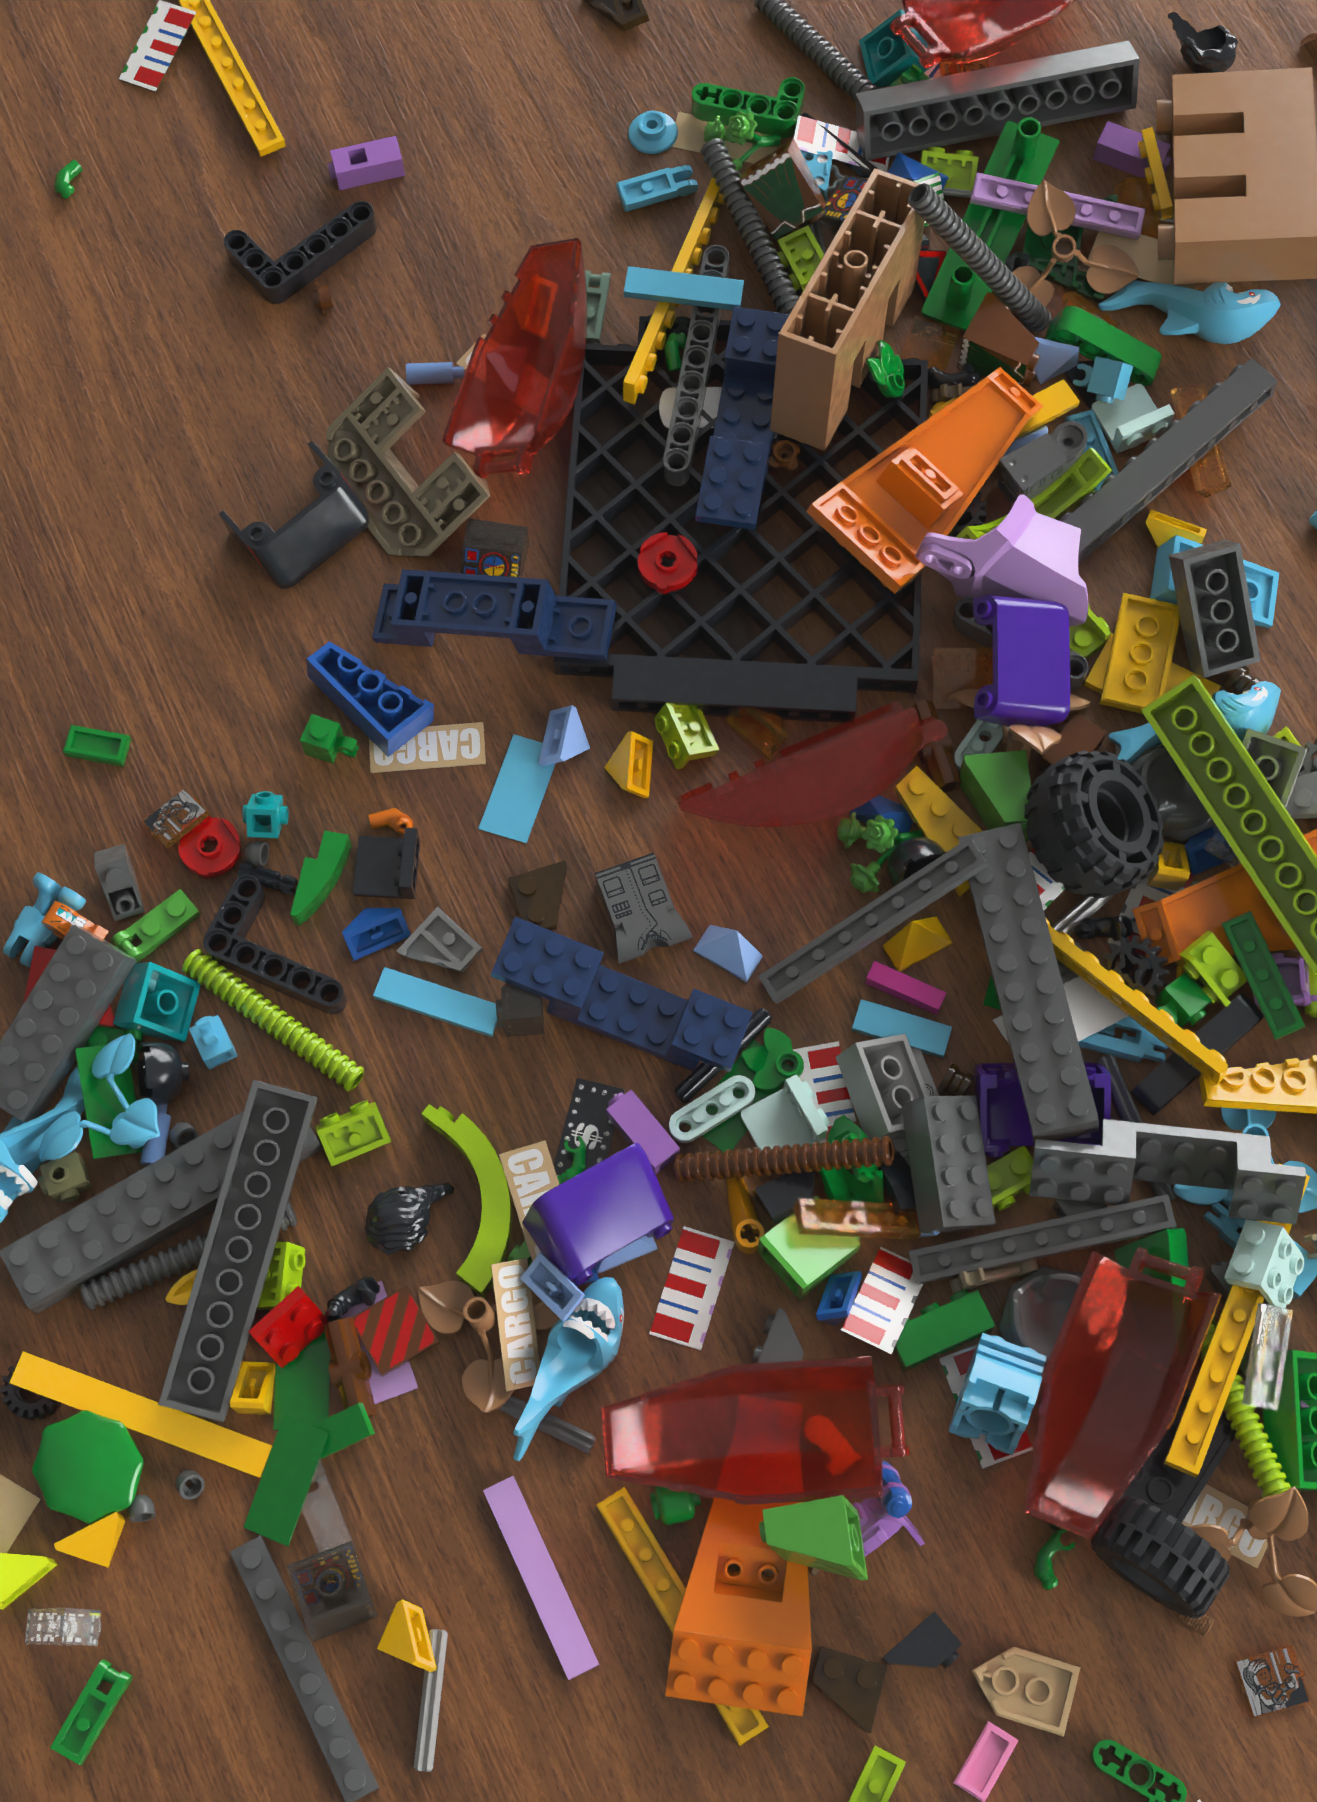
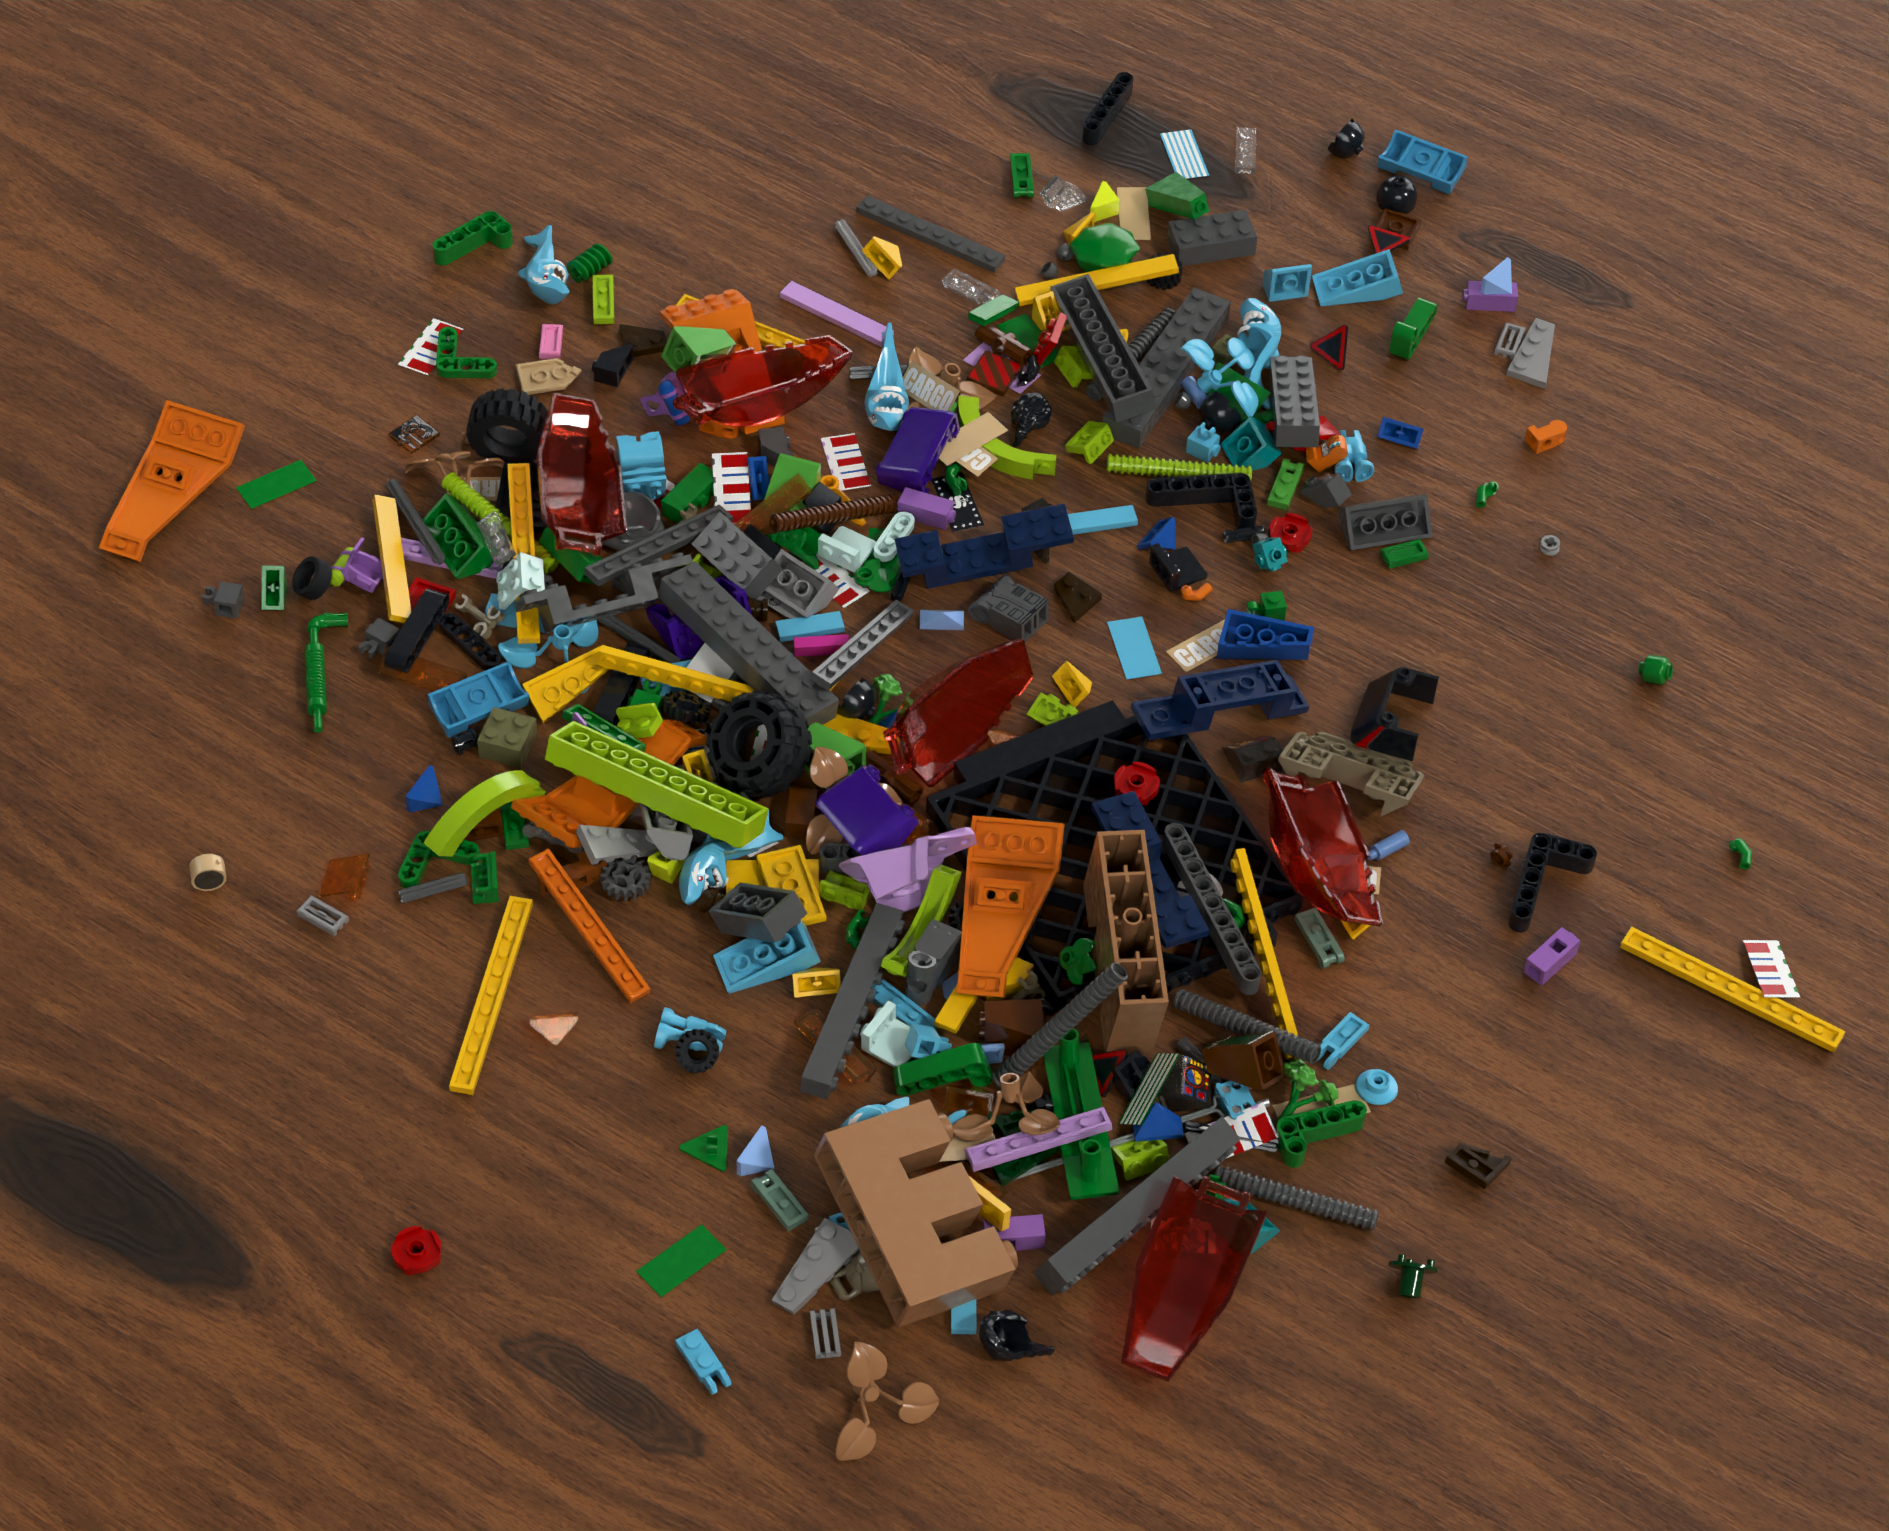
camera: 145 degrees right, 20 degrees down
(82, 797) = (1386, 521): none -> dark grey slope
(175, 818) = (1322, 534): piece -> none
(286, 1480) = (999, 289): green sticker -> none
(320, 875) = (1214, 545): green slope -> none
(331, 1591) = (938, 256): clear smoke slope -> none
(441, 943) = (1112, 546): light grey wing -> none
(500, 1206) = (972, 437): none -> tan sticker
(552, 1287) = (912, 399): light blue slope -> none
(563, 736) = (1127, 677): light blue slope -> none
(683, 288) = (1253, 934): medium azure tile -> none
(800, 255) = (1194, 1028): lime bracket -> none
(1101, 567) = (857, 921): none -> green piece

